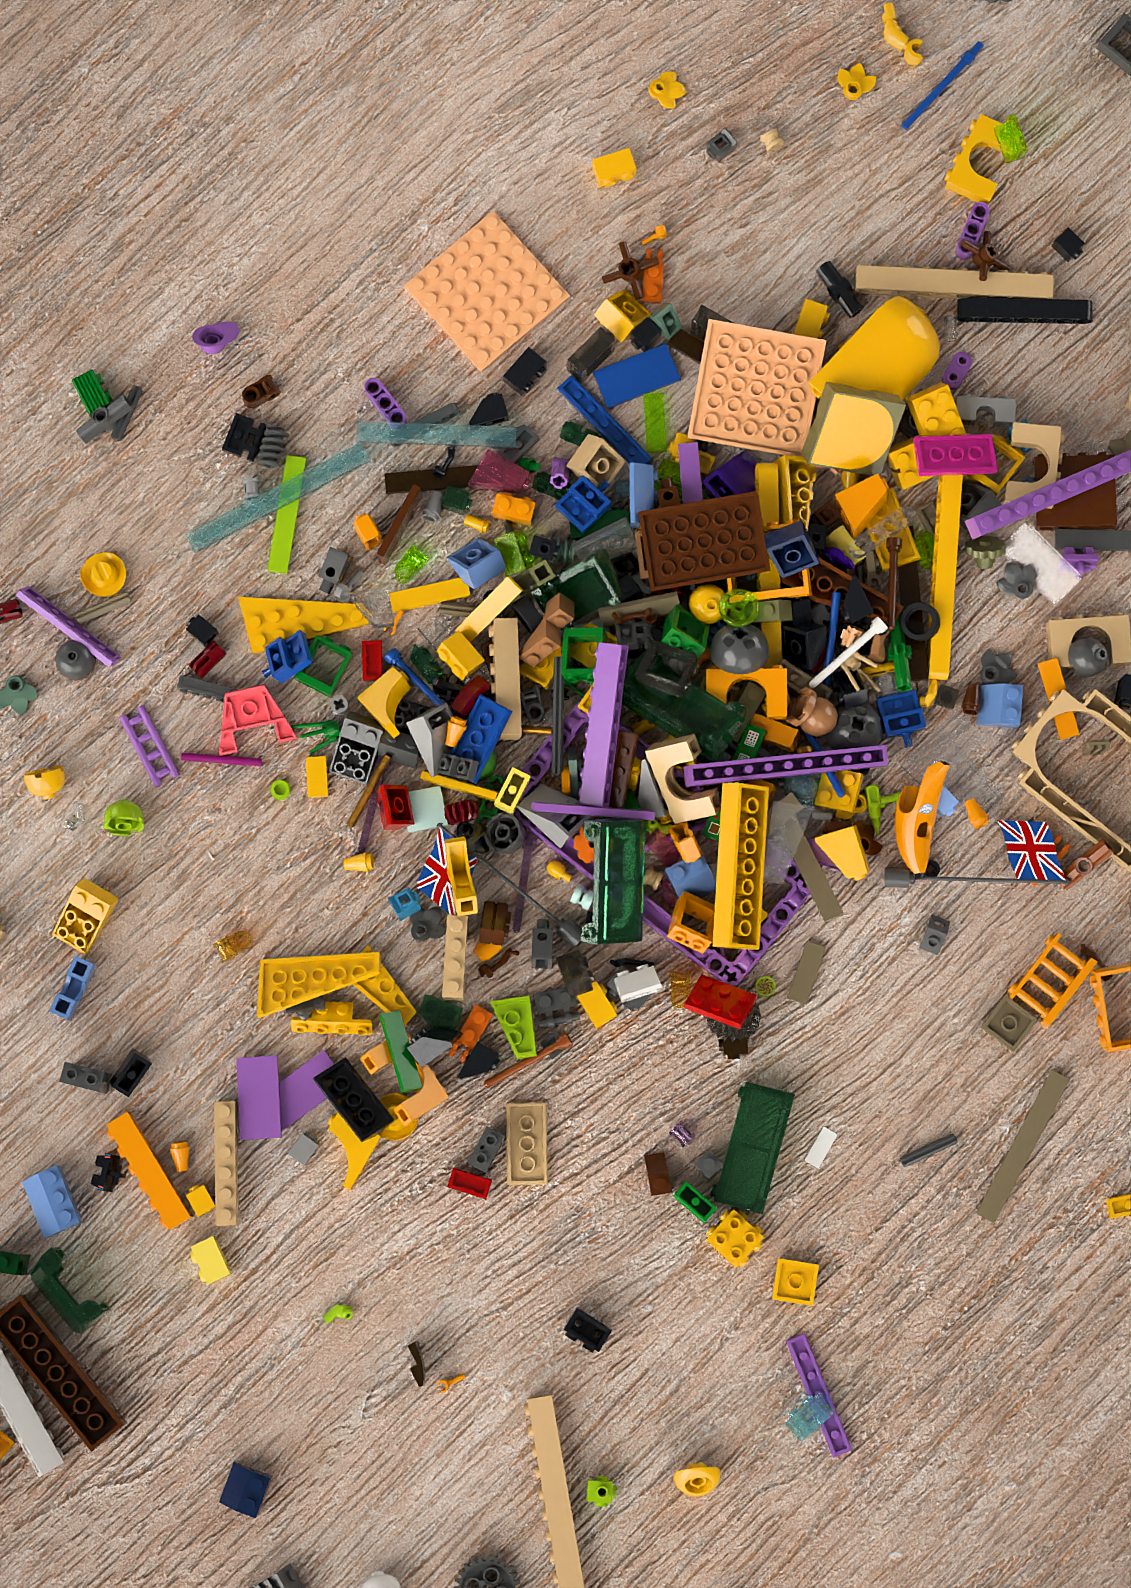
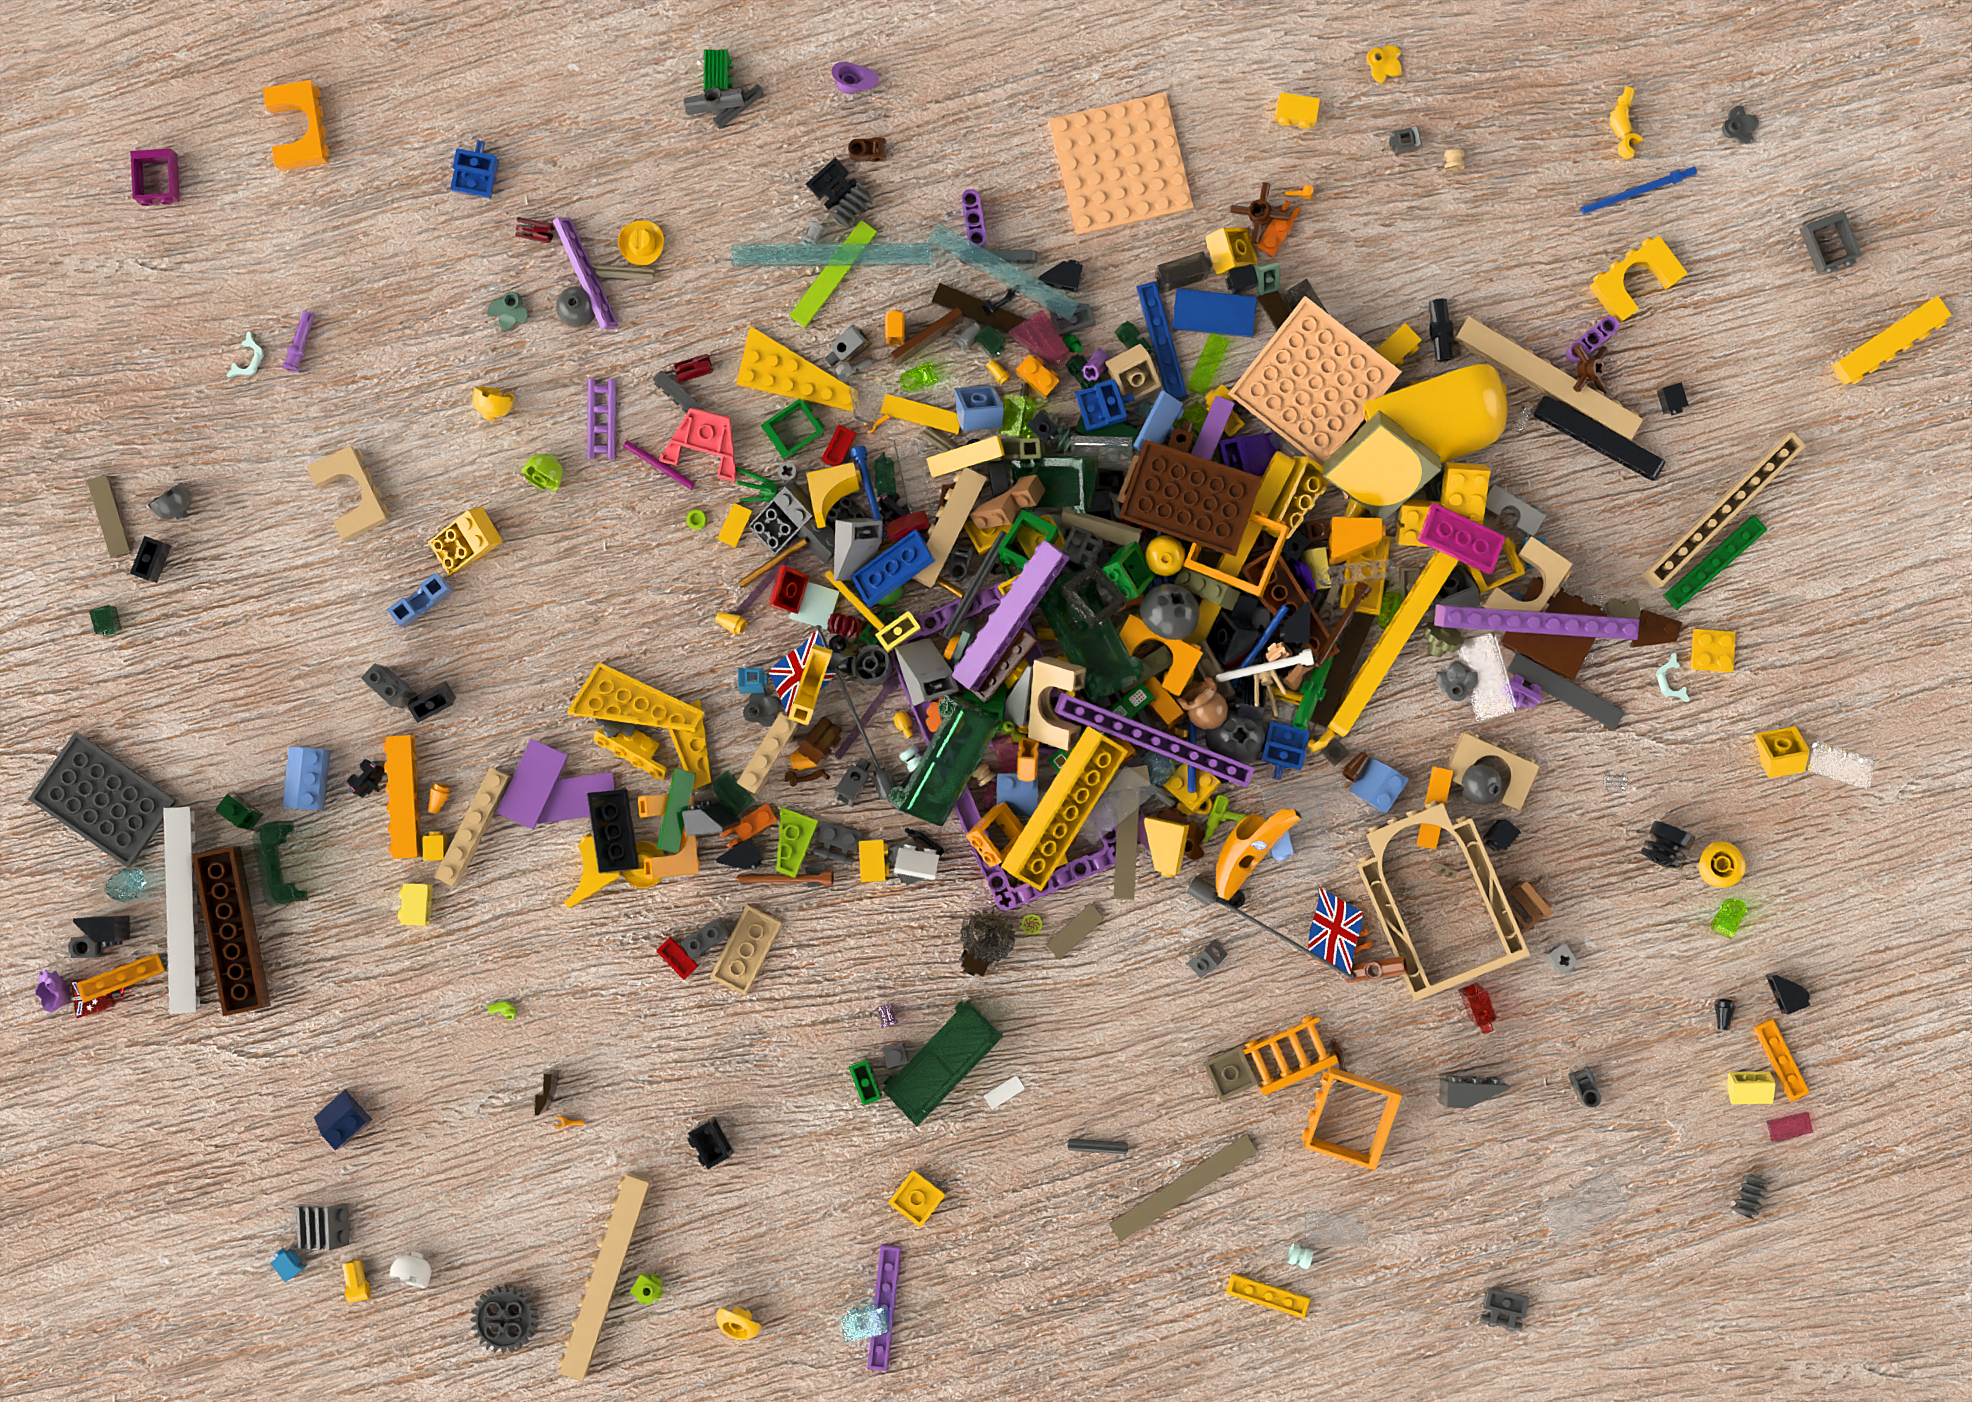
camera: 30 degrees right, 5 degrees up
(77, 819) = (502, 451): clear arm -> none
(201, 630) = (701, 339): black brick -> none
(232, 945) = (578, 636): clear yellow piece -> none
(287, 657) = (763, 404): blue plate -> none
(304, 1148) = (548, 850): light grey brick -> none
(455, 730) = (877, 549): light orange cone -> none
(458, 767) = (861, 584): dark grey slope -> none
(460, 655) = (918, 484): yellow brick -> none
(525, 371) = (1115, 256): black brick -> none
(575, 973) = (867, 823): clear smoke brick -> none
(592, 810) = (958, 688): medium lavender tile -> none
(648, 611) = (1086, 529): reddish brown piece -> none
(657, 1174) = (846, 1039): reddish brown slope -> none
(680, 985) = (955, 884): clear yellow piece -> none
(720, 1001) = (982, 918): red plate -> none
(735, 1237) = (884, 1131): yellow brick -> none
(738, 615) = (1187, 582): clear neon green piece -> none
(791, 549) = (1264, 547): dark blue slope -> none
(857, 80) = (1562, 144): yellow plate -> none
(910, 609) = (1337, 660): black tyre -> none
(957, 369) = (1508, 460): medium lavender plate -> none
(976, 814) = (1303, 872): light orange cone -> none
(998, 666) = (1396, 749): dark grey plate -> none
(1011, 139) = (1673, 274): clear neon green bracket -> none

